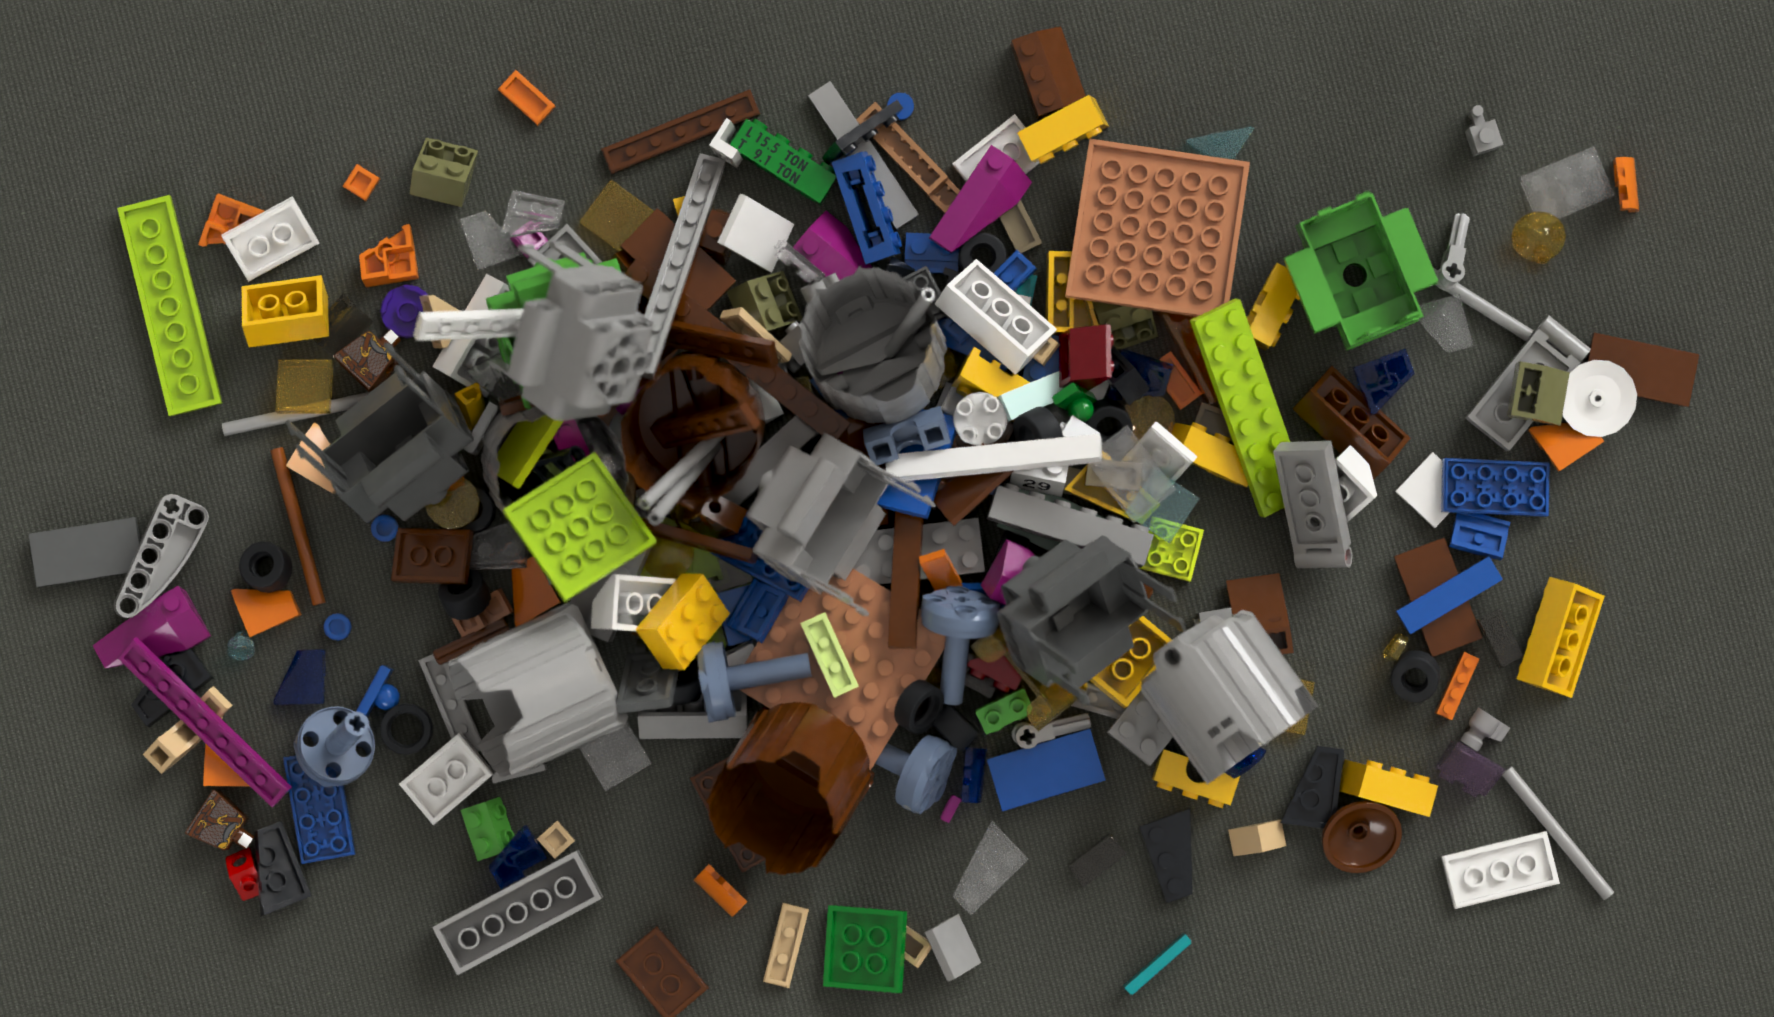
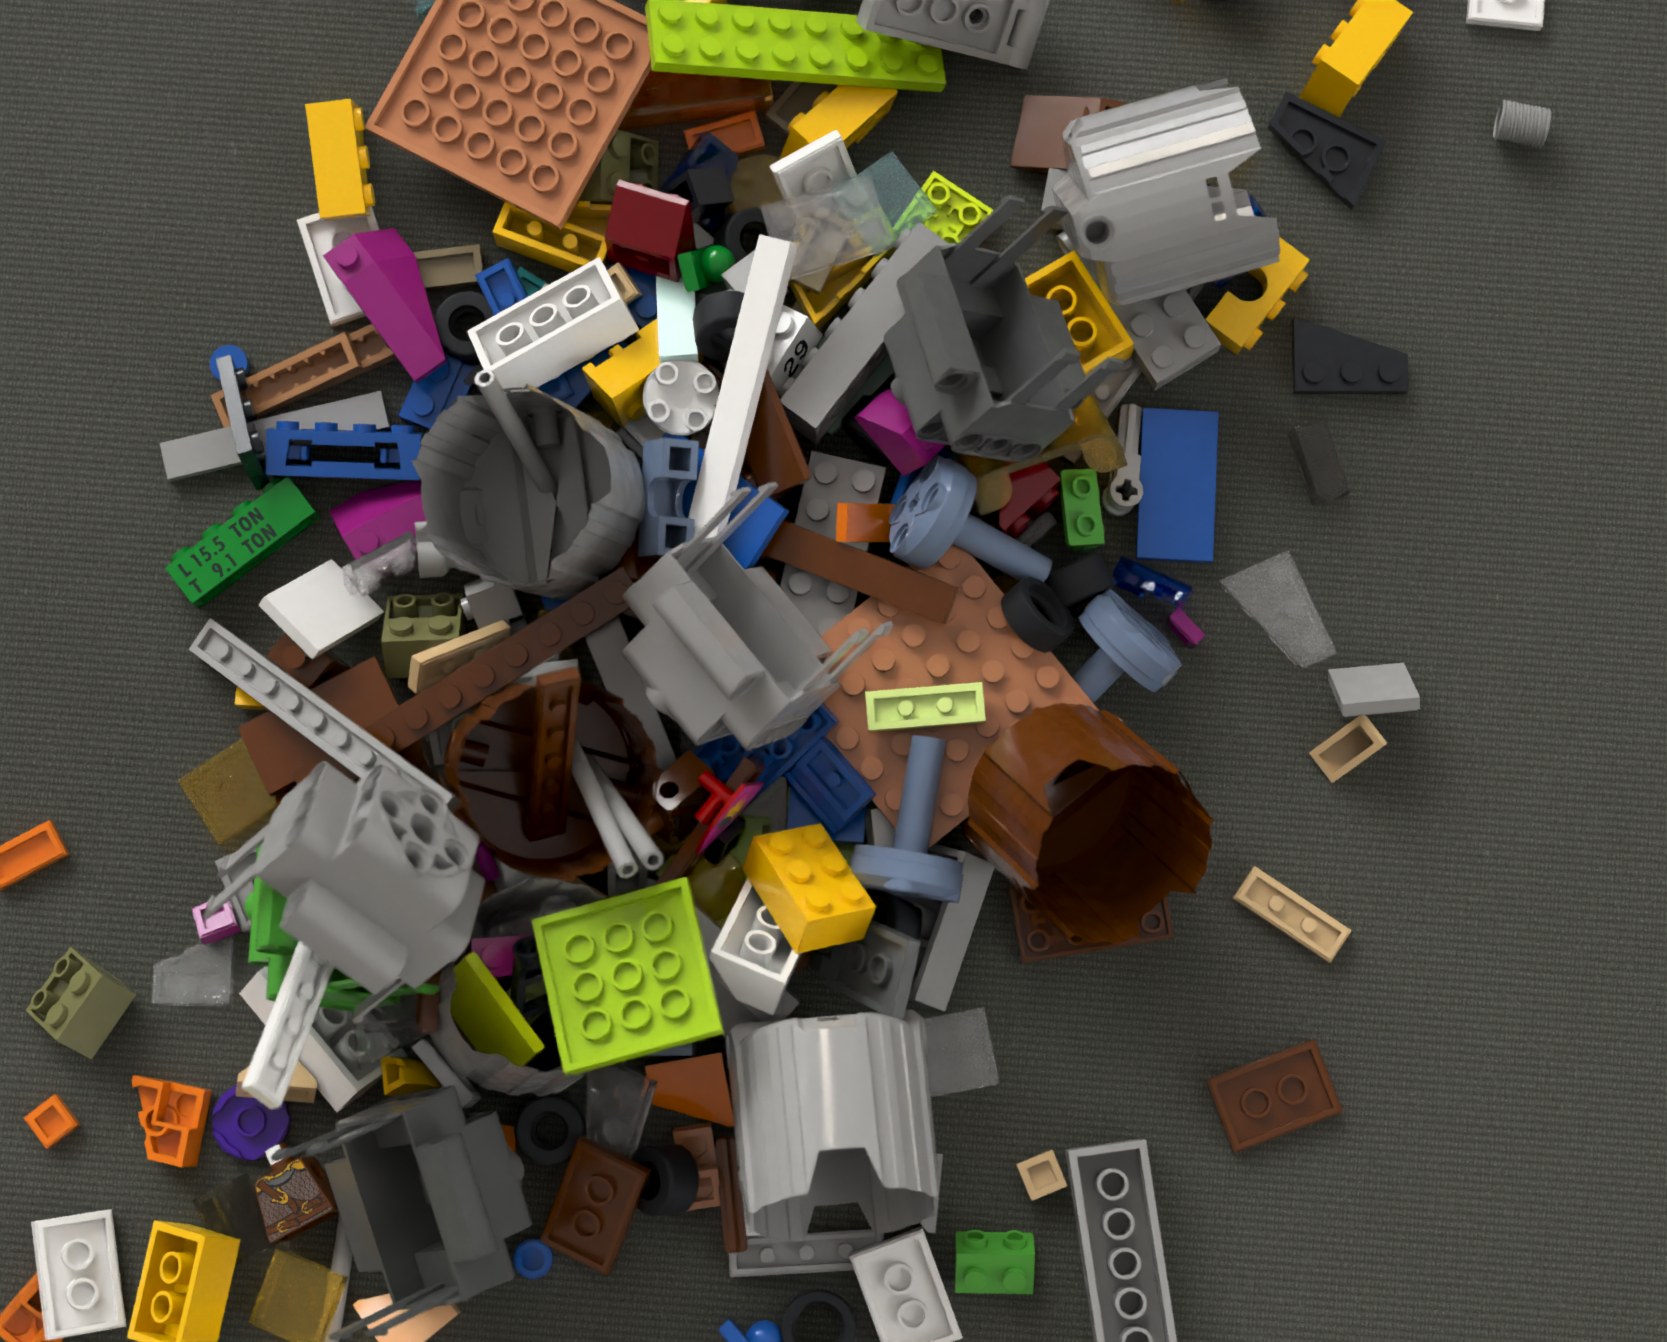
camera: 65 degrees left, 5 degrees down
(457, 507) = (540, 1145): clear yellow tile -> none
(517, 856) = (1045, 1233): clear blue slope -> none
(531, 214) = (181, 903): clear wing -> none
(679, 132) = (150, 666): reddish brown tile -> none
(698, 554) = (725, 841): none -> black tile
(720, 890) = (1188, 975): orange slope -> none
(721, 147) = (193, 611): white panel -> none
(722, 344) = (452, 695): reddish brown tile -> none
(722, 543) = (721, 795): none -> red shield
(865, 948) = (1335, 807): green plate -> none
(1047, 71) = (255, 159): reddish brown slope -> none
(1157, 964) = (1485, 431): teal tile -> none
(1257, 838) = (1362, 246): tan slope -> none
(1366, 846) = (1409, 107): reddish brown dish -> none
(1380, 917) = (1522, 123): none -> light grey piece

